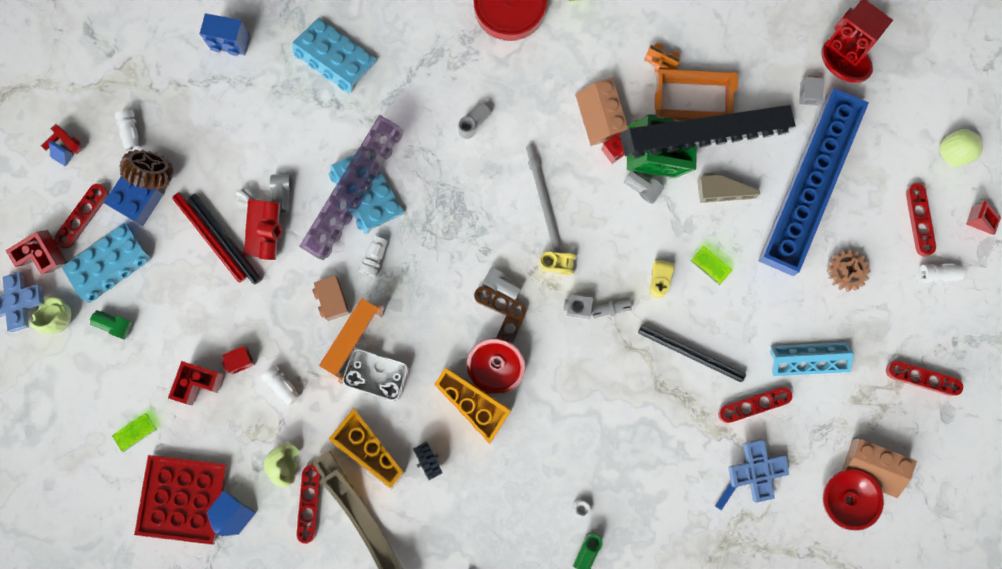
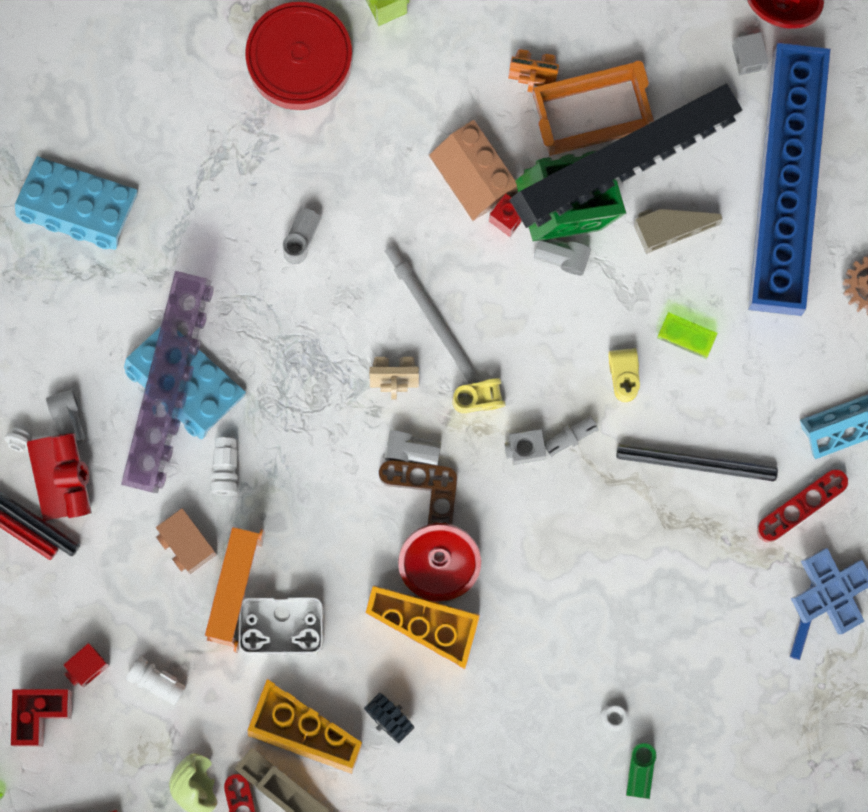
camera: 20 degrees left, 0 degrees up
(505, 233) = (394, 378): none -> tan hips

